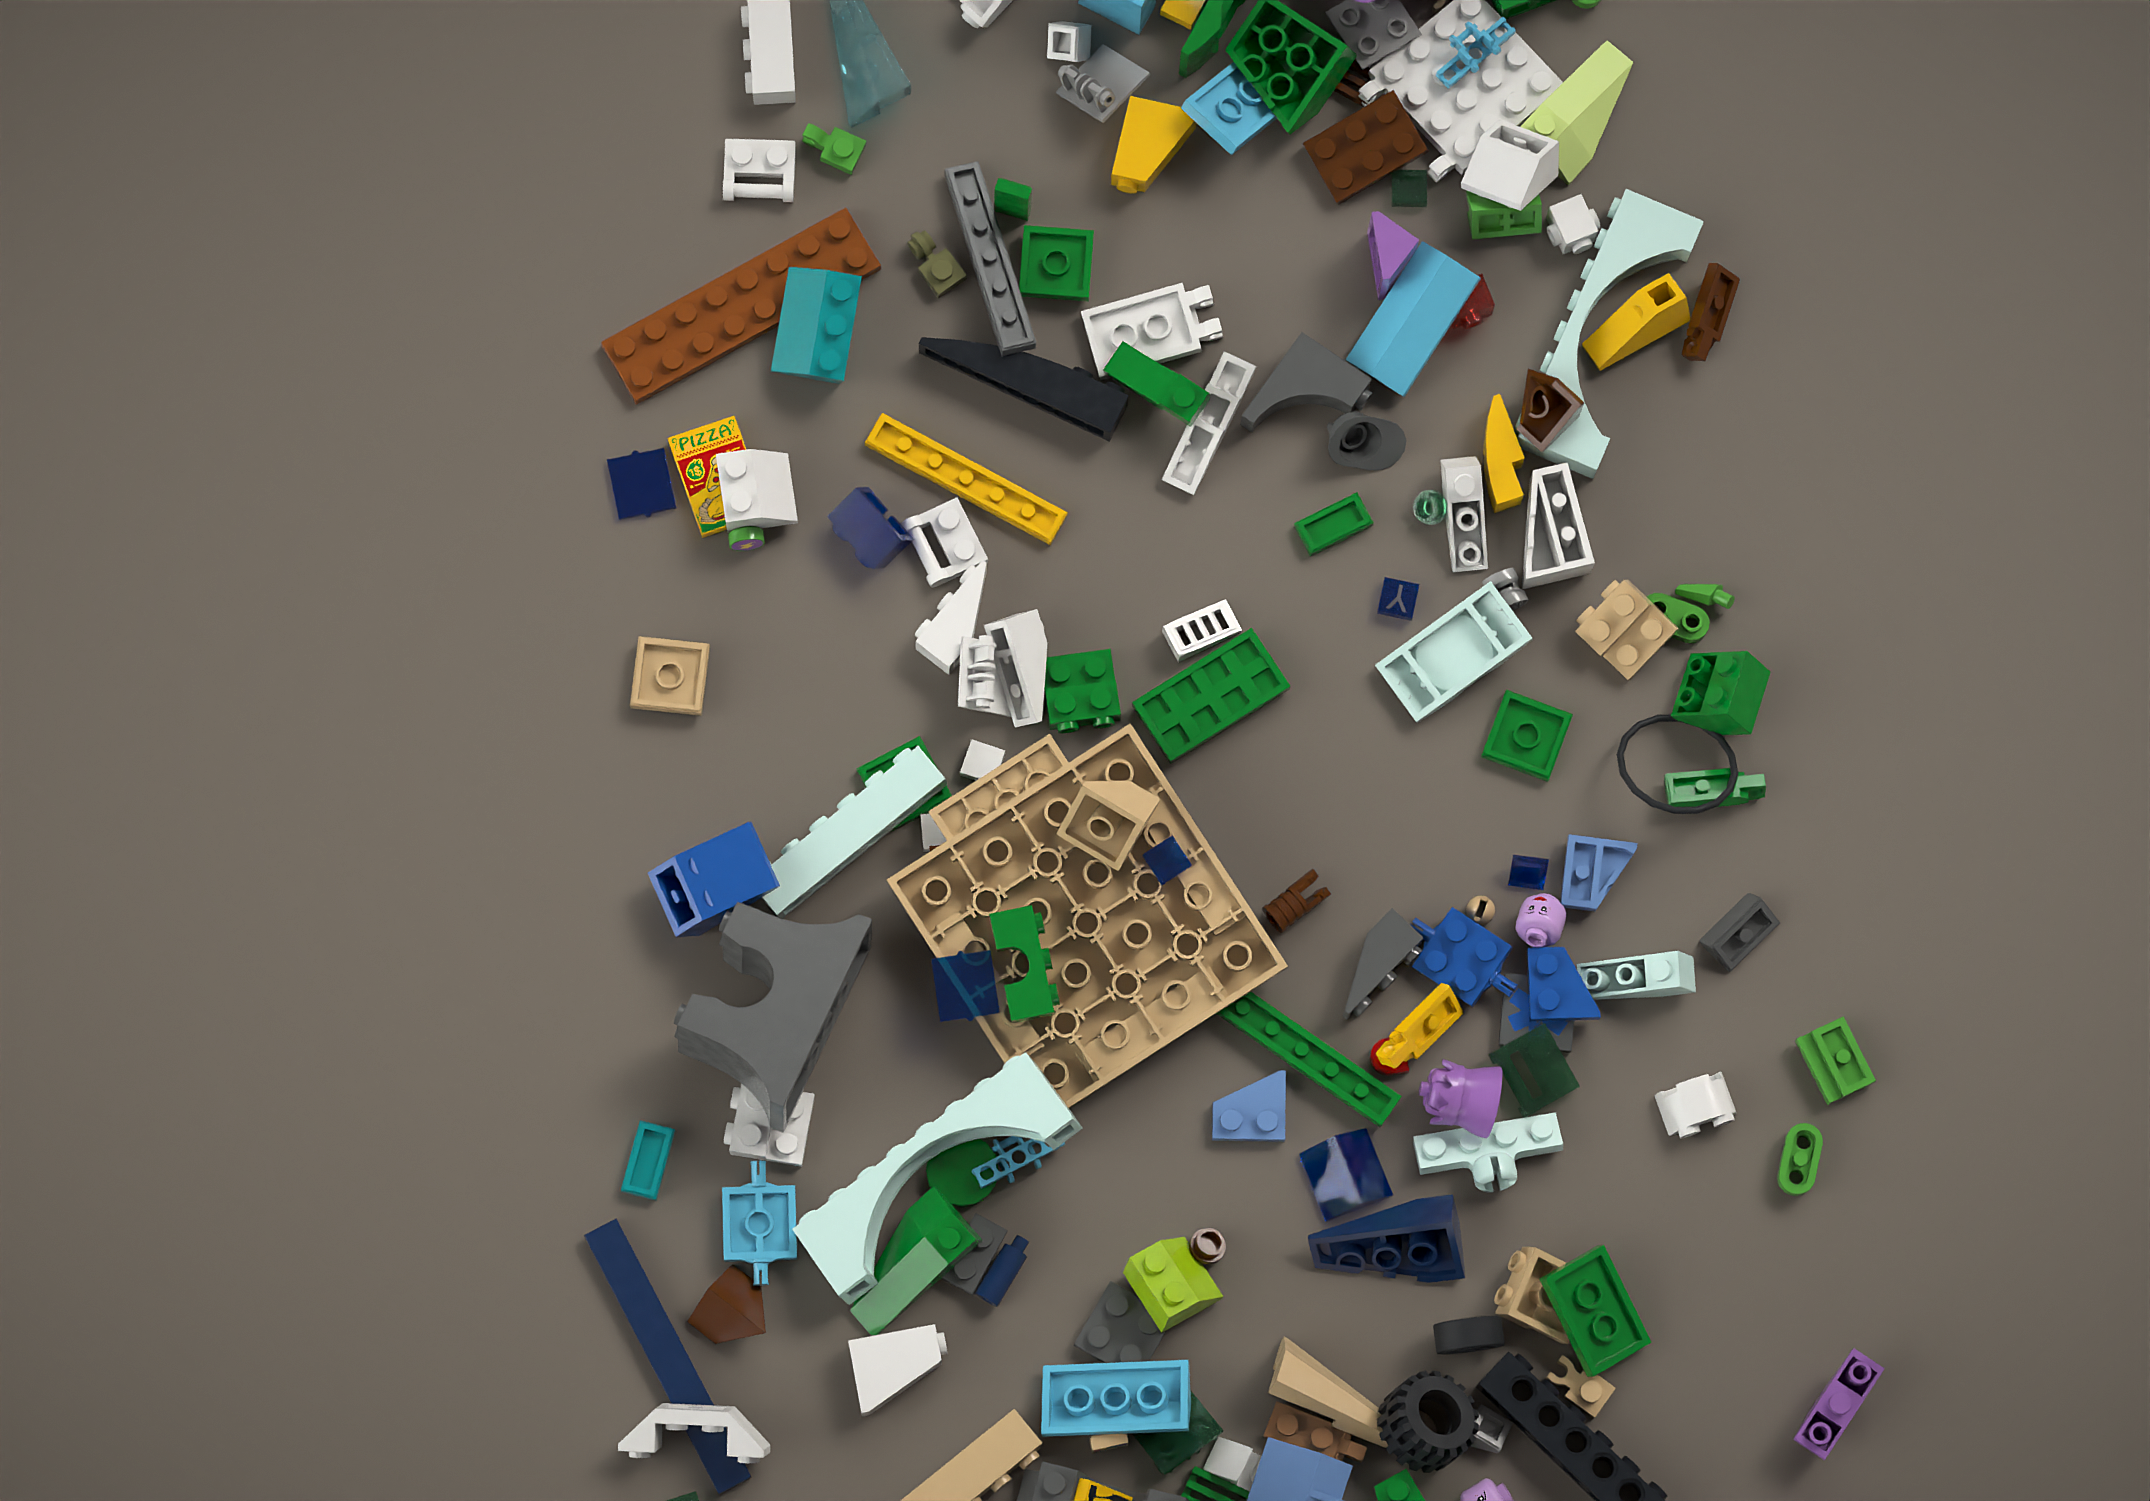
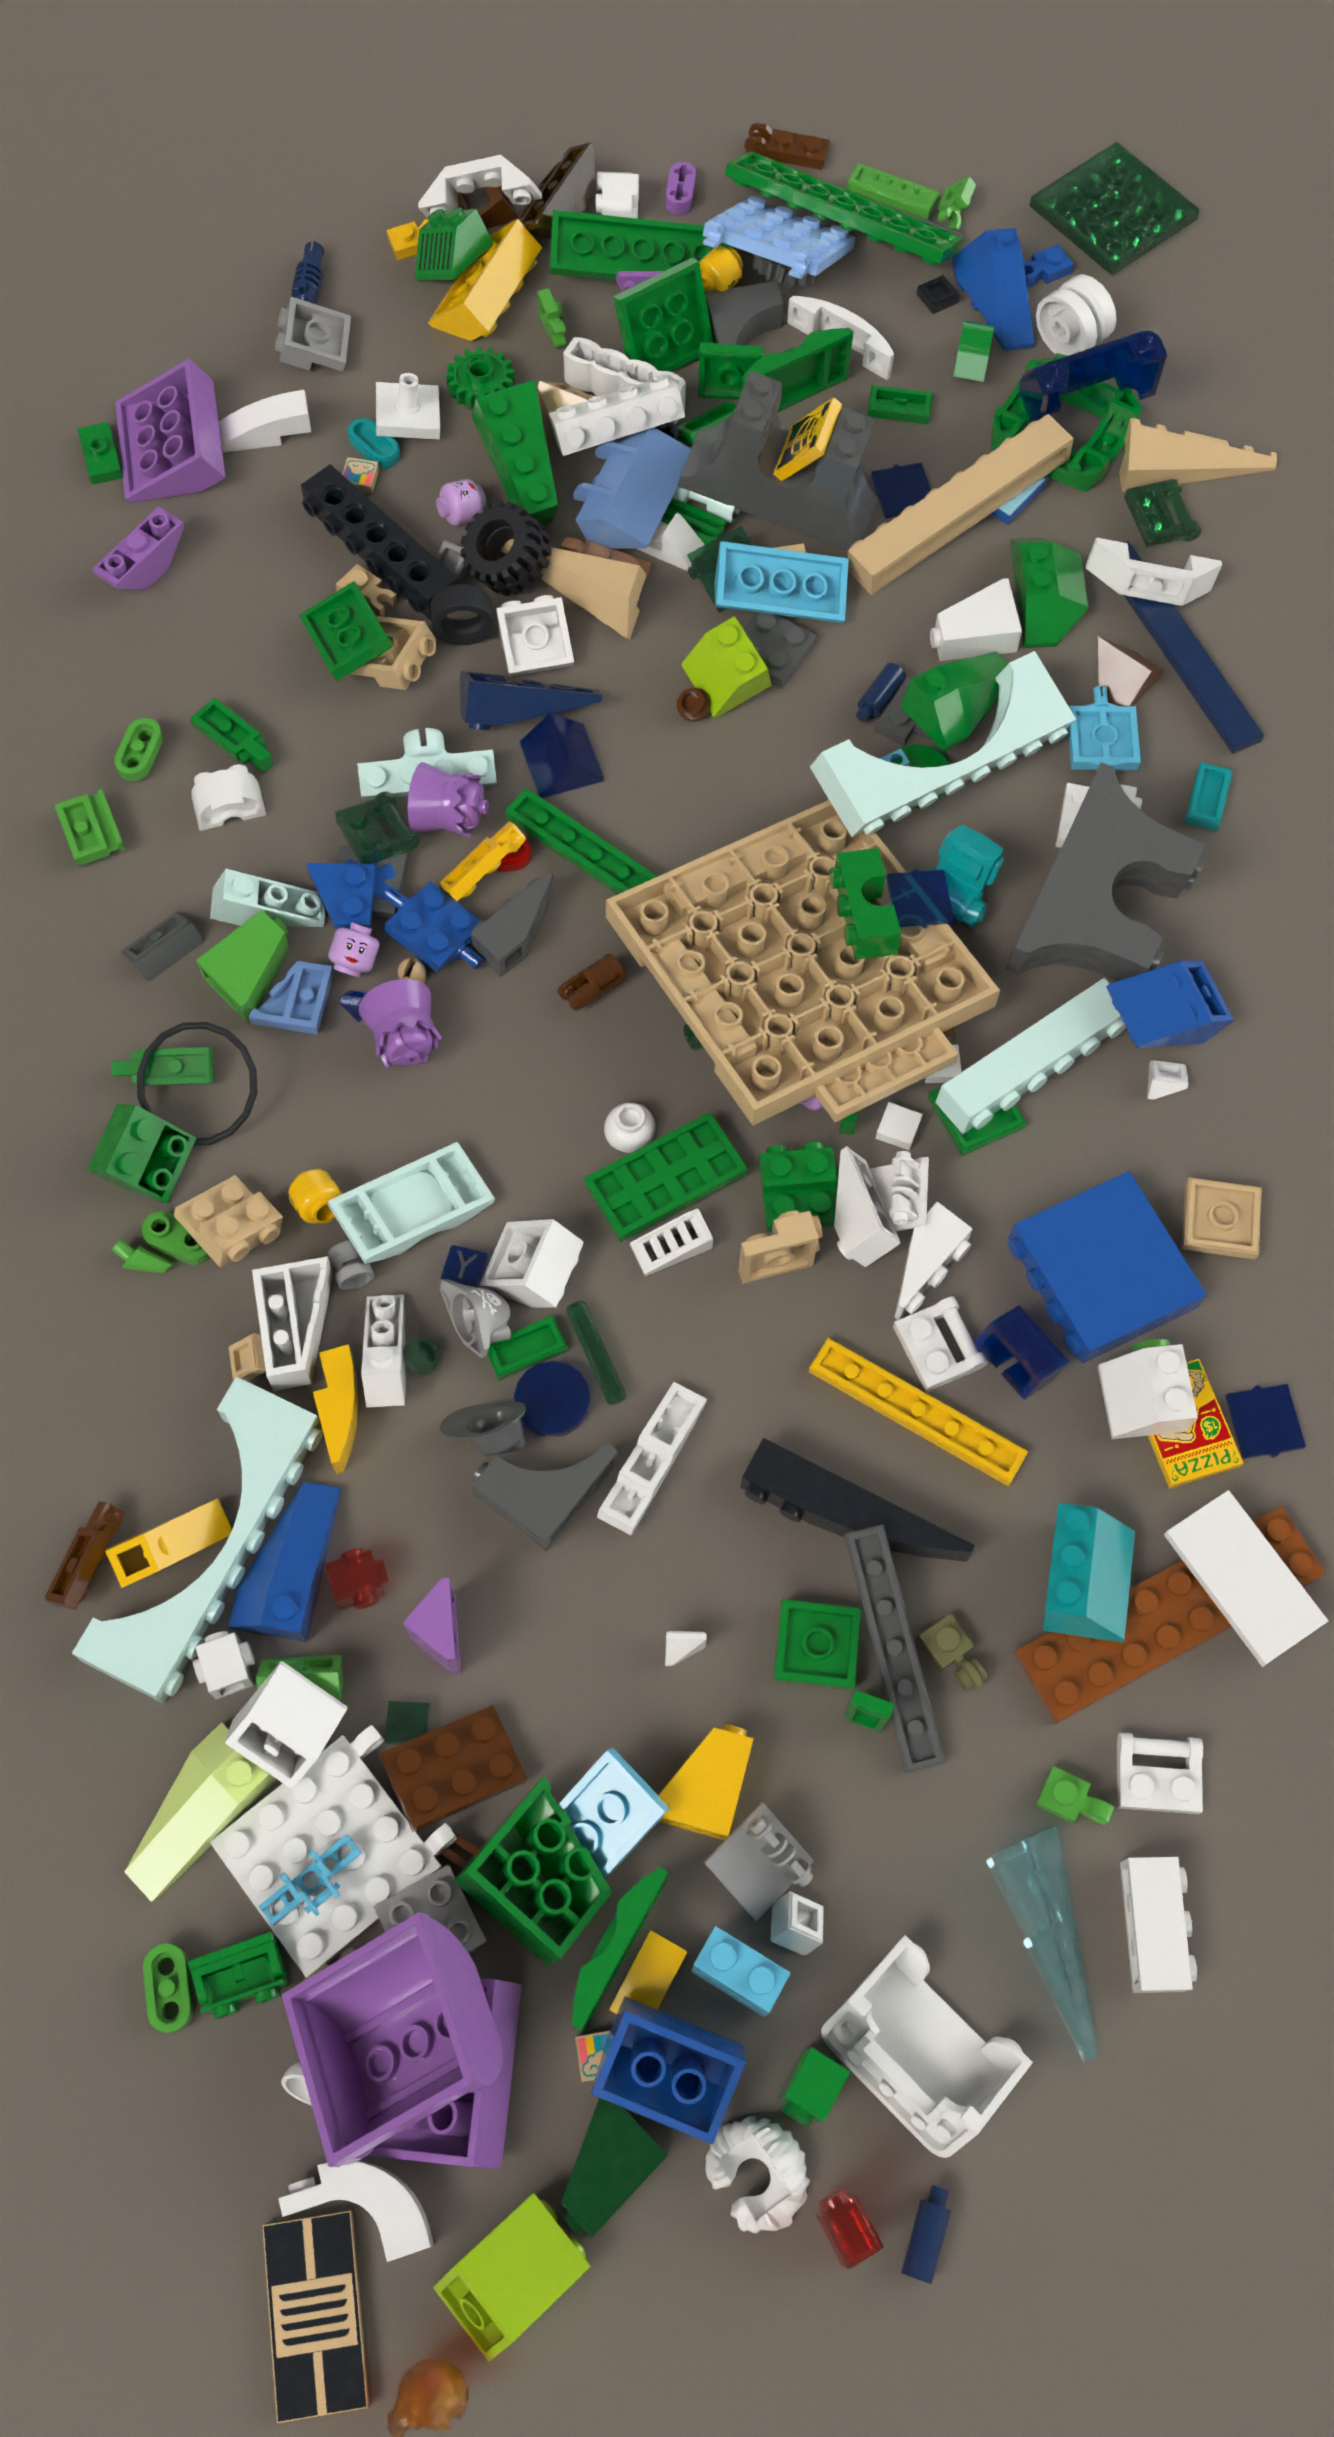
camera: 175 degrees left, 10 degrees down
(677, 327) = (1245, 1578): none -> white tile
(711, 822) = (1166, 1079): none -> white slope
(787, 618) = (1105, 1267): none -> blue brick
(813, 1426) = (1047, 589): none -> green wedge
(917, 1030) = (969, 866): none -> teal piece
(1088, 617) = (785, 1250): none -> tan plate
(1108, 819) = (771, 1013): tan slope -> none
(1155, 323) = (714, 1565): white tile -> none
(1157, 384) = (708, 1488): green slope -> none
(1167, 860) = (721, 986): clear blue tile -> none
(1173, 259) = (683, 1645): none -> white slope
(1248, 753) = (629, 1127): none -> white piece
(1252, 1112) = (645, 811): medium blue wing -> none
(1267, 520) = (596, 1353): none -> clear green axle
(1304, 476) = (554, 1398): none -> clear blue tile
(1334, 599) = (532, 1262): none -> white slope
(1377, 544) = (476, 1314): none -> light grey hat
(1387, 1322) = (534, 635): none -> white plate
(1413, 318) = (416, 1552): medium azure slope -> none
(1481, 832) = (400, 1021): none -> medium lavender hat
(1527, 735) = (346, 1130): green tile -> none
(1532, 301) = (286, 1575): none -> blue wedge
(1547, 409) = (282, 1433): reddish brown slope -> none
(1547, 658) = (310, 1195): none -> yellow head
(1591, 497) = (247, 1357): none -> tan tile
(1649, 904) = (246, 962): none -> bright green slope
(1703, 1183) = (232, 734): none -> green hinge

